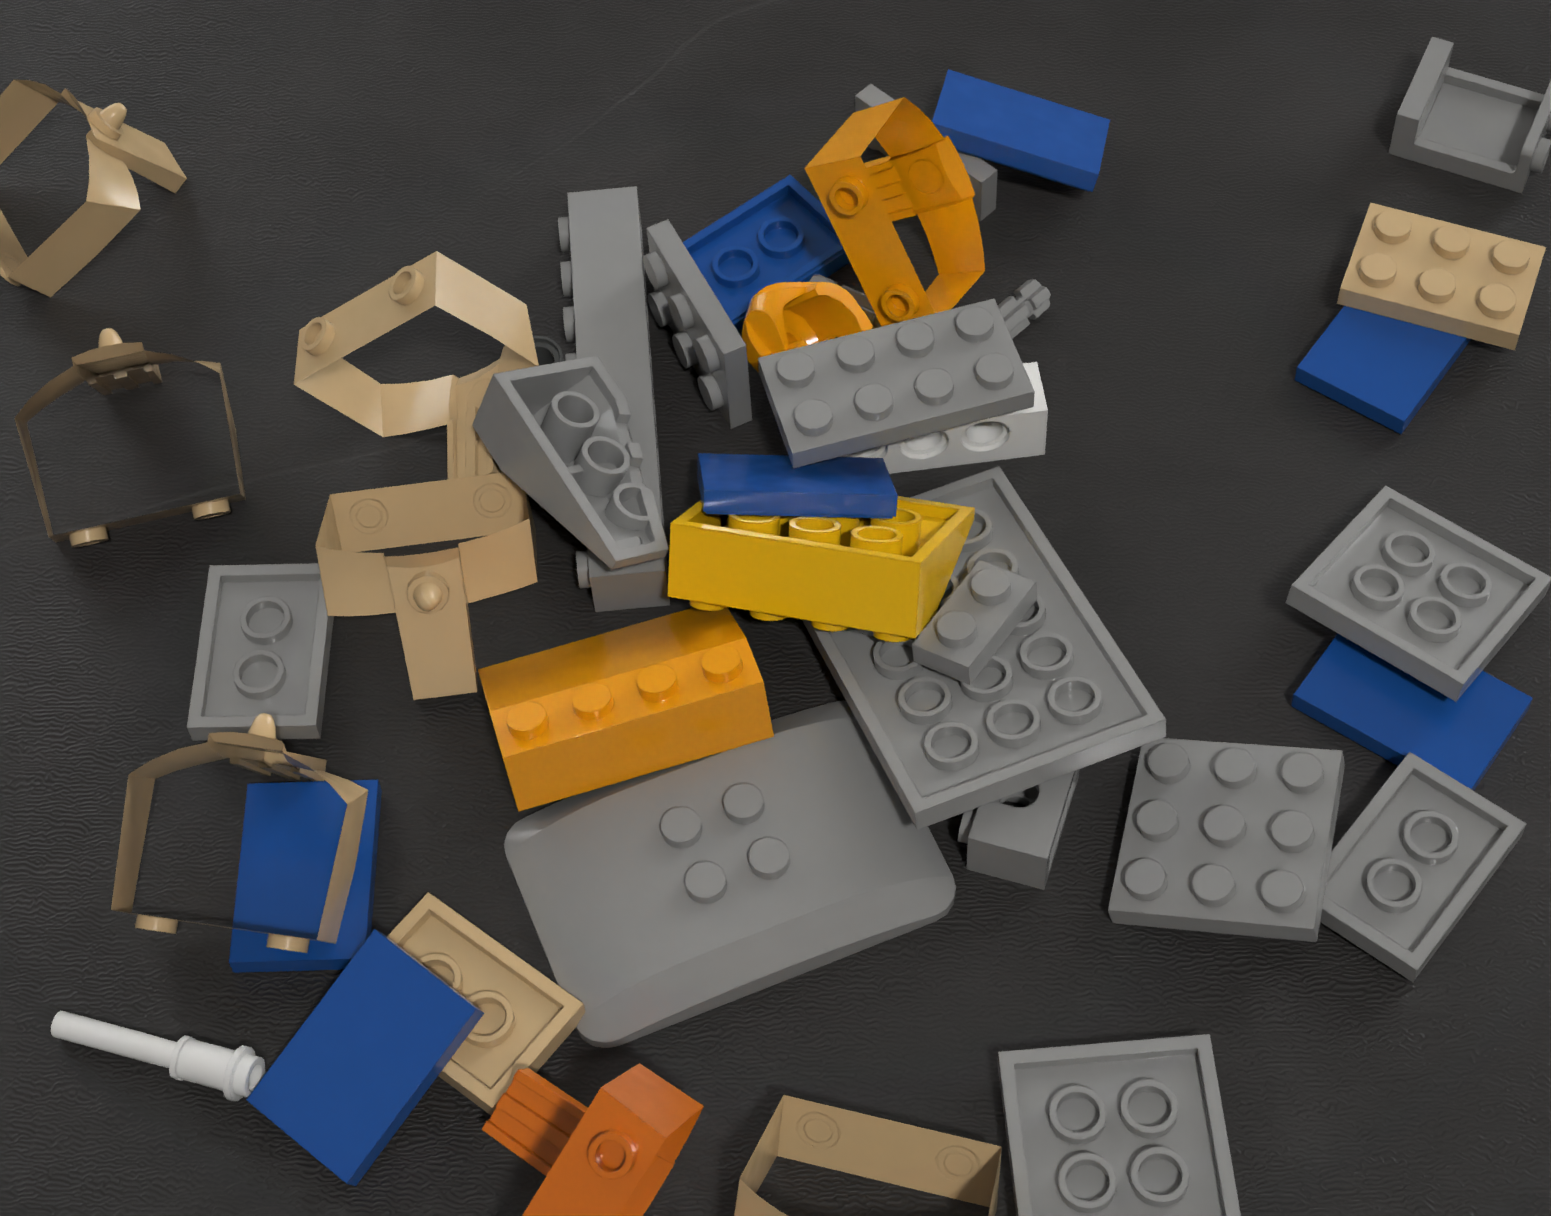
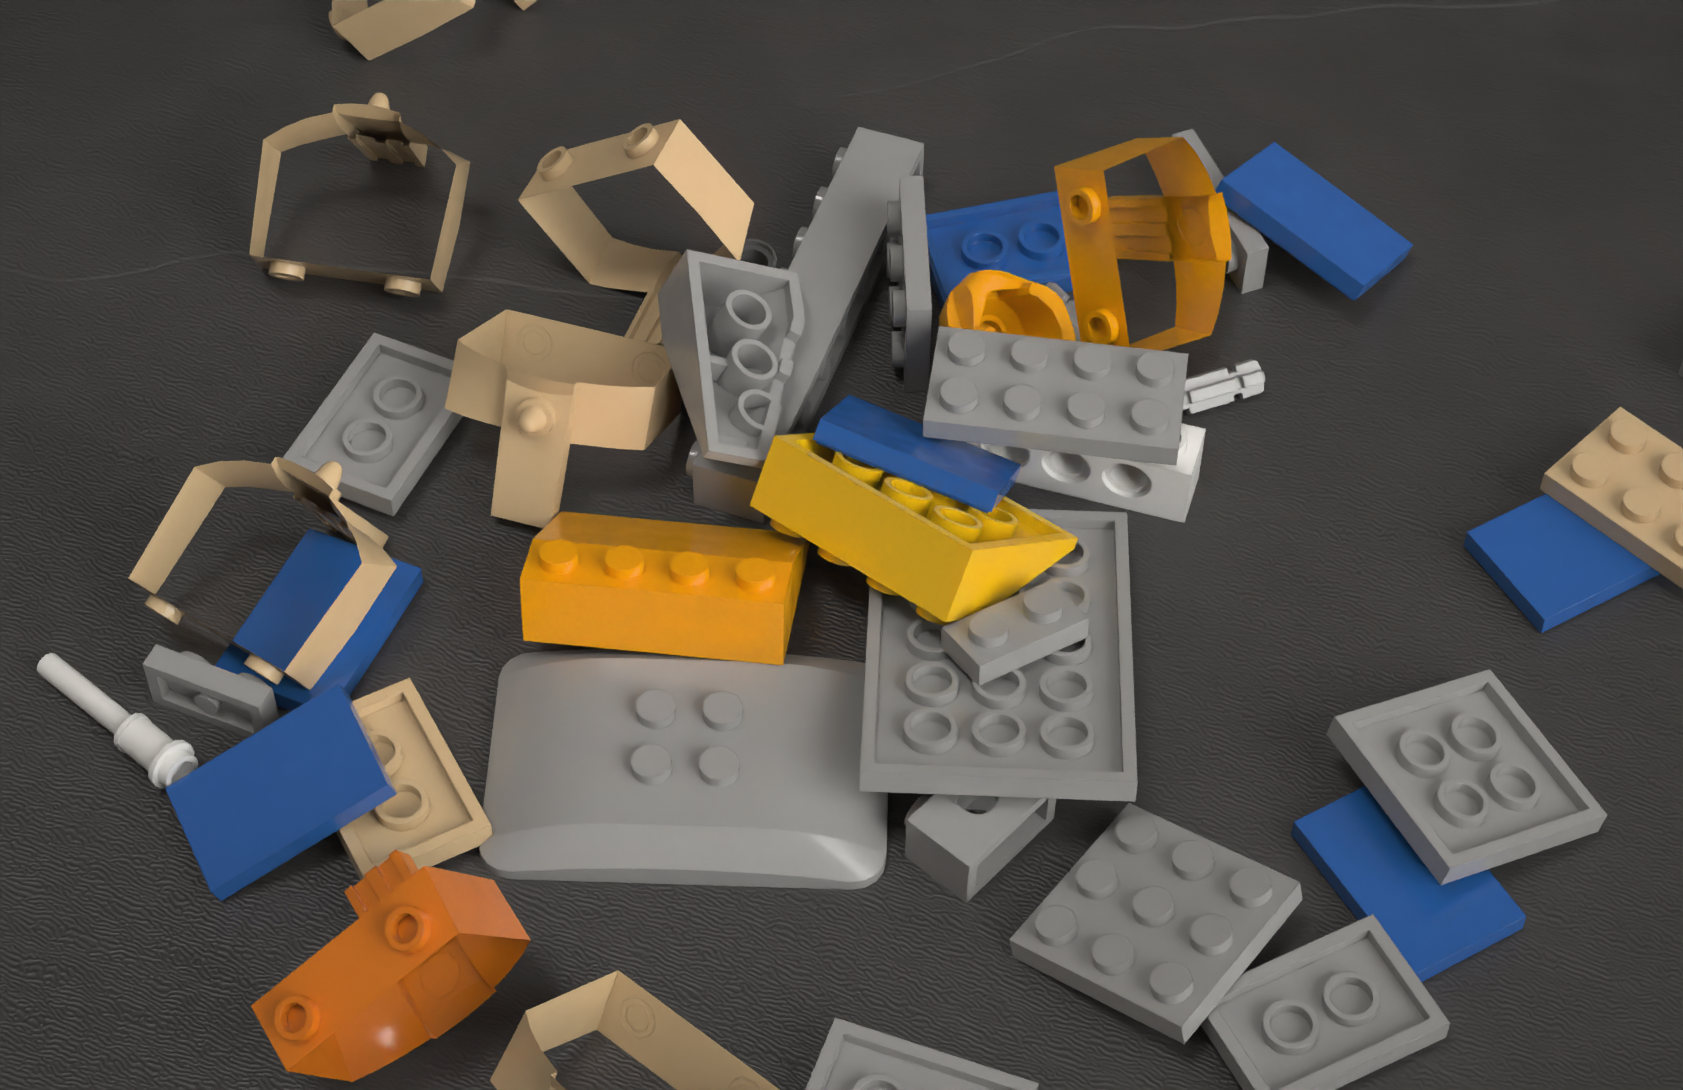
camera: 20 degrees right, 5 degrees down
(253, 987) = (208, 692): none -> light grey plate

